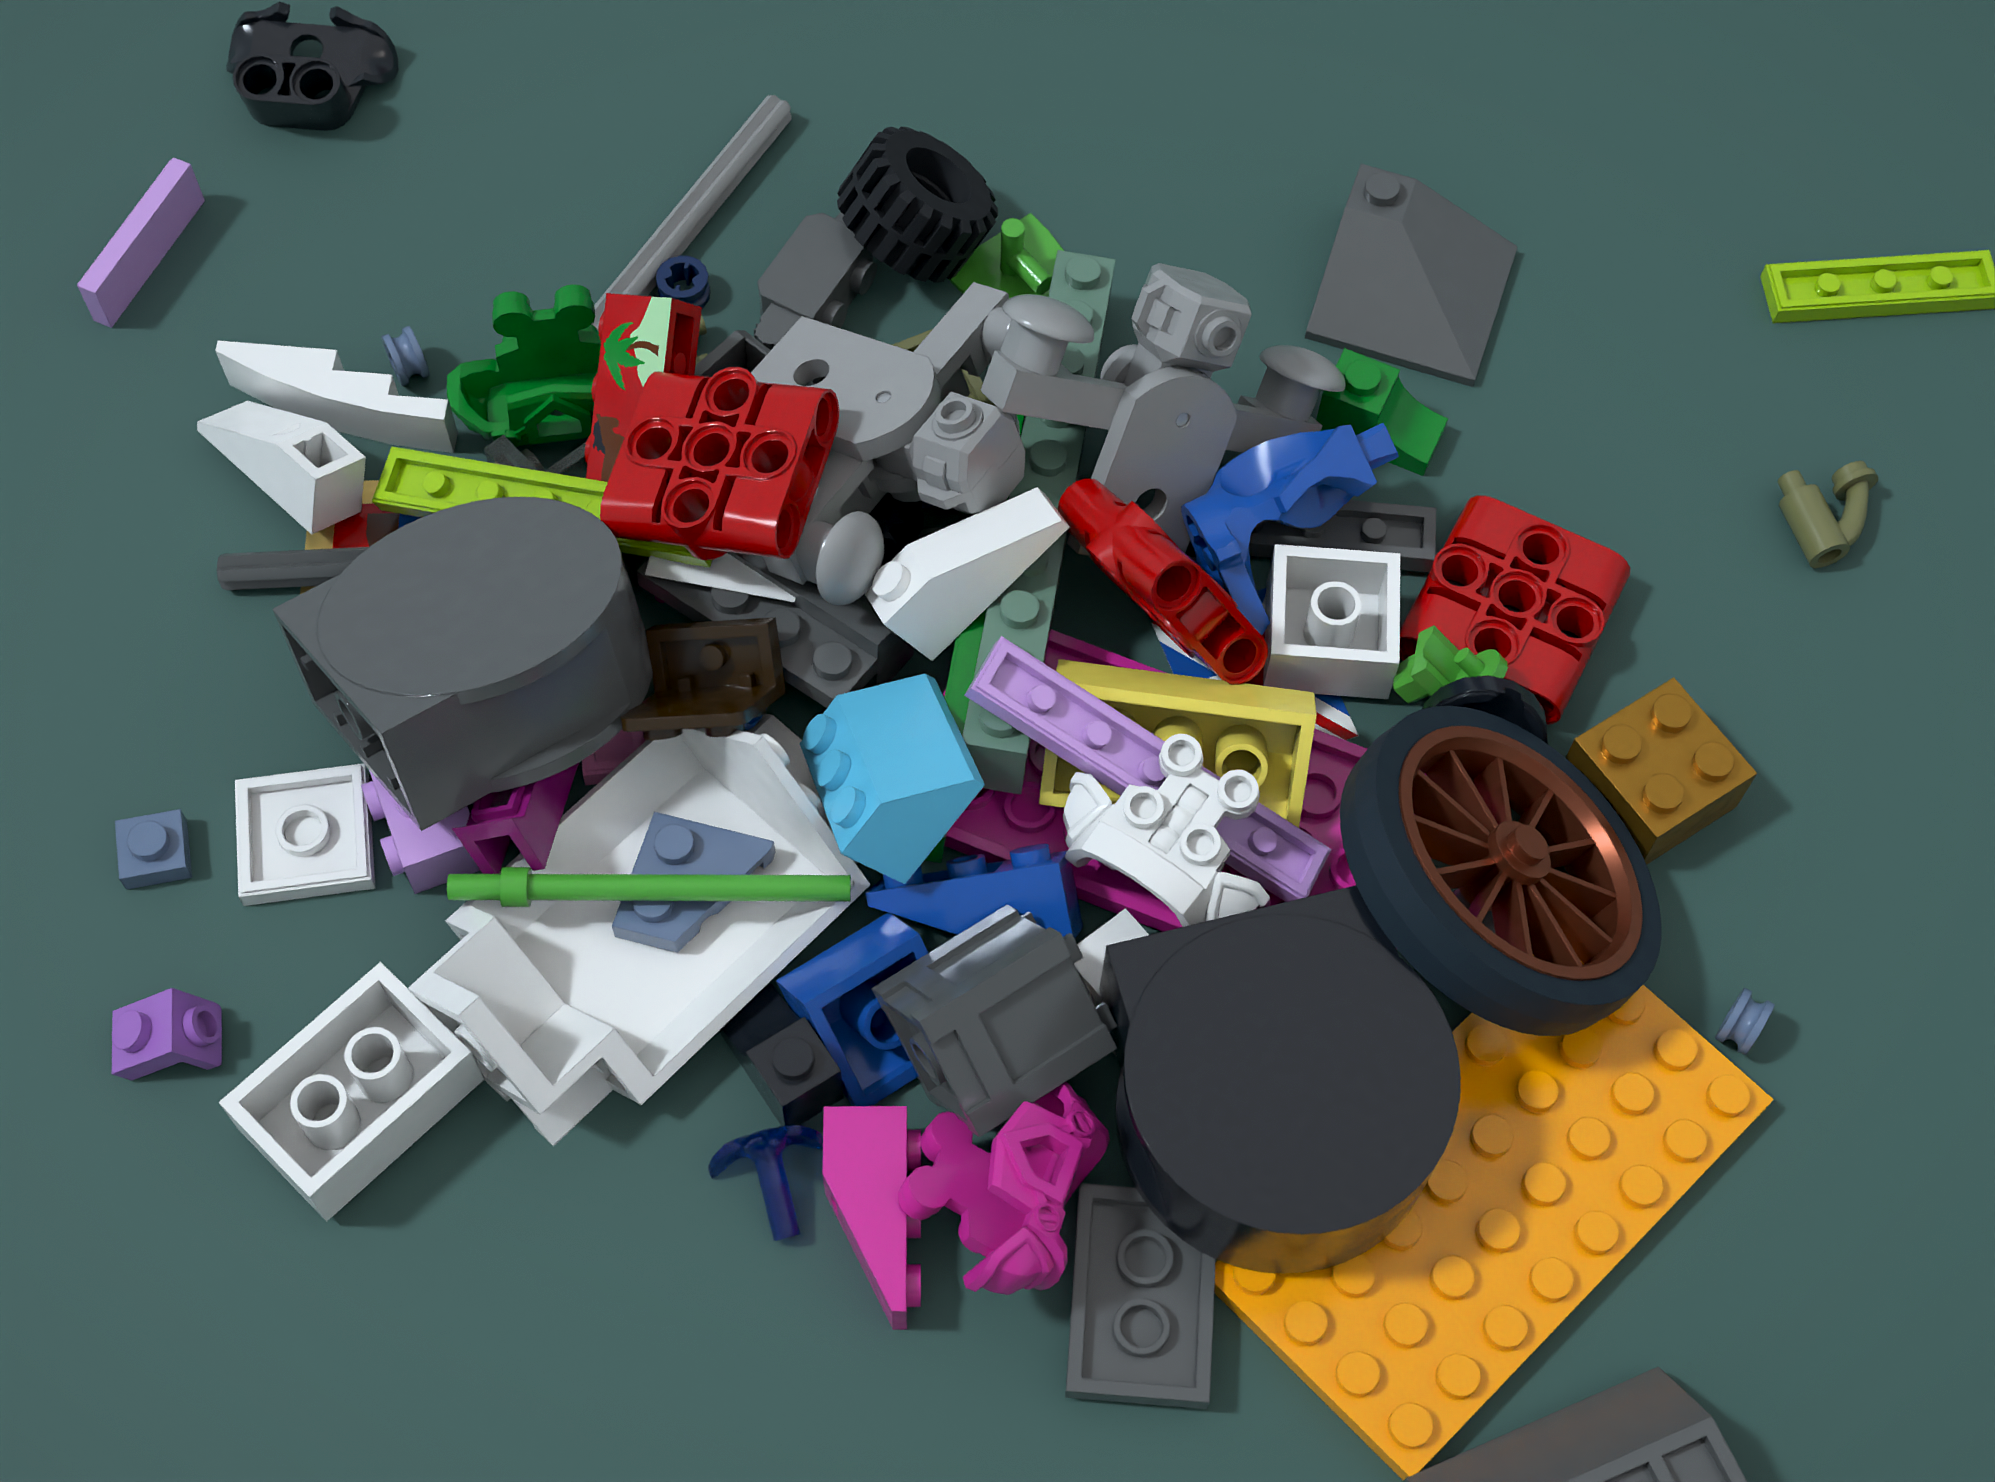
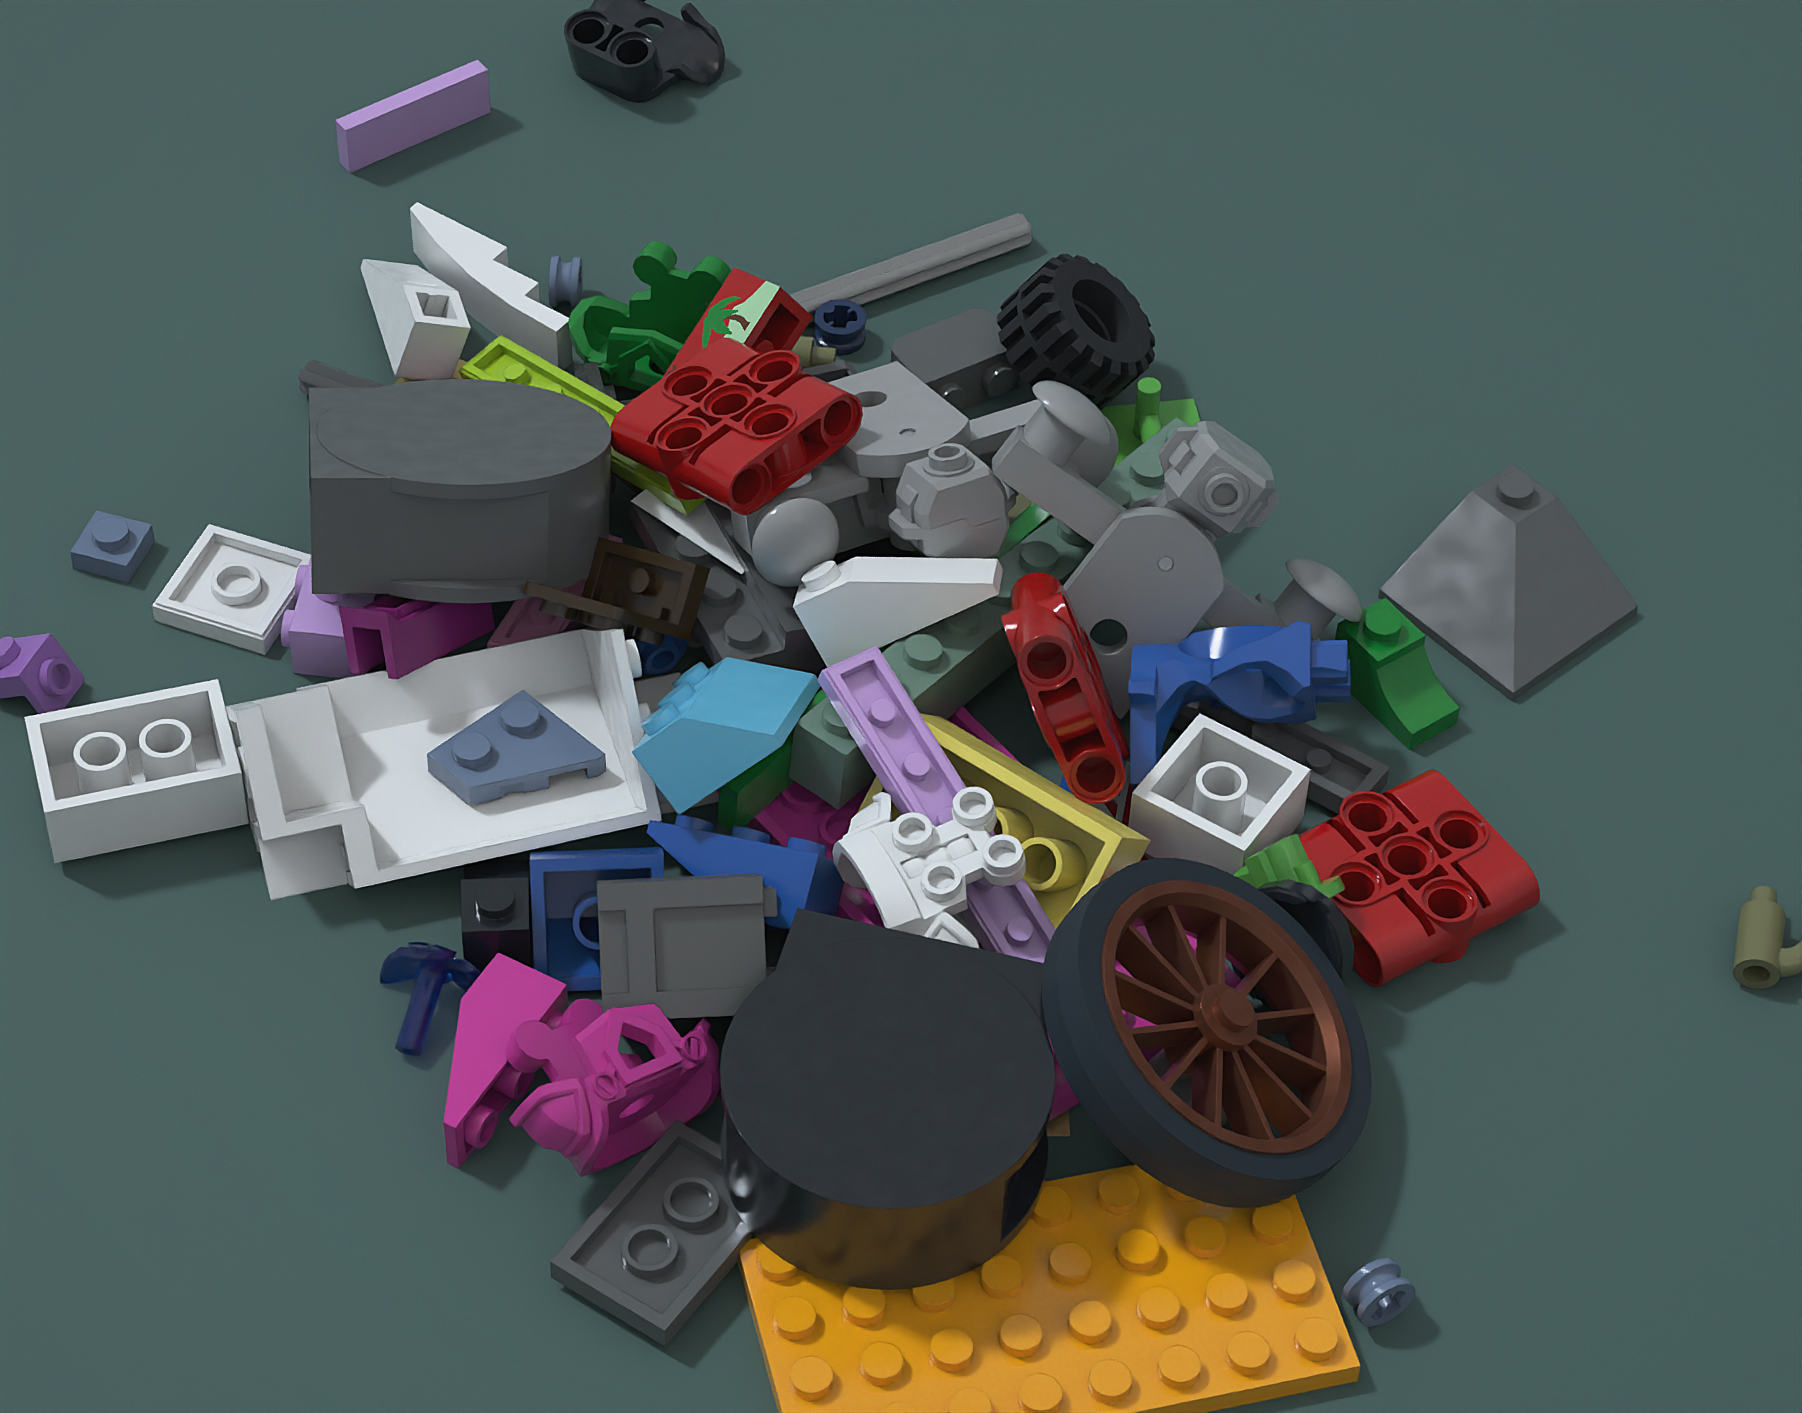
camera: 30 degrees right, 15 degrees down
(520, 887) = (372, 685): bright green bar -> none
(1663, 768) = (1442, 1060): pearl gold brick -> none

